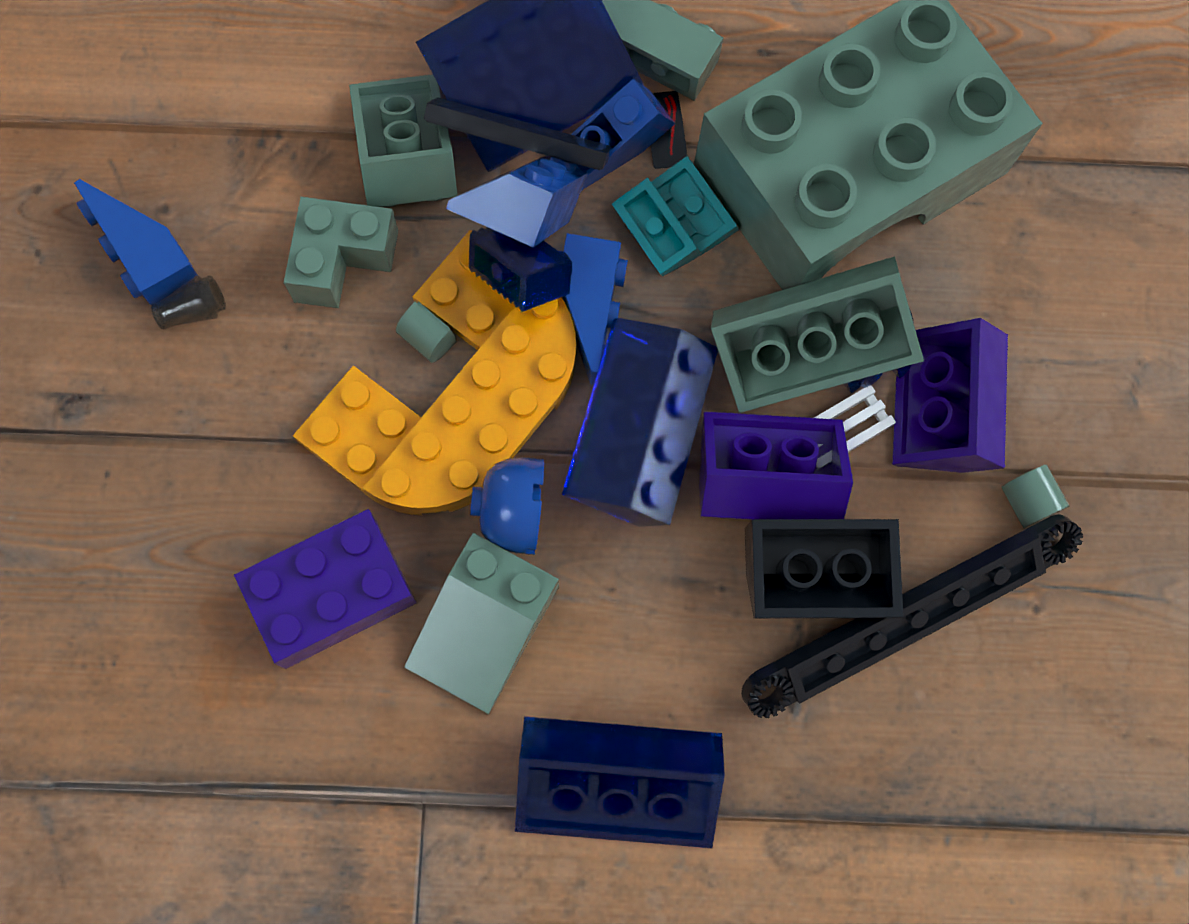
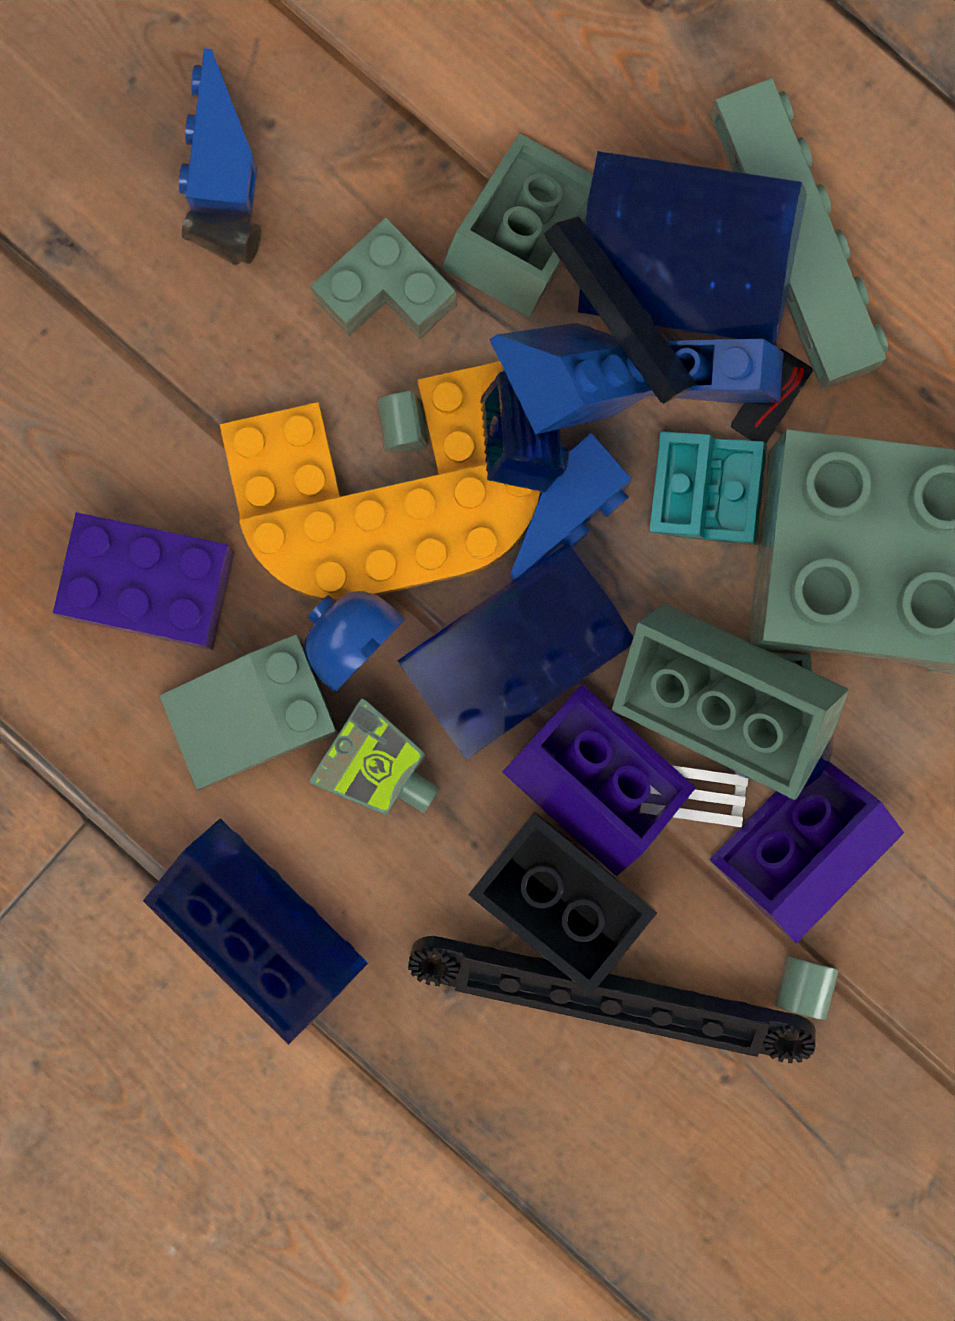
camera: 45 degrees right, 10 degrees up
(605, 585) = (374, 764): none -> torso

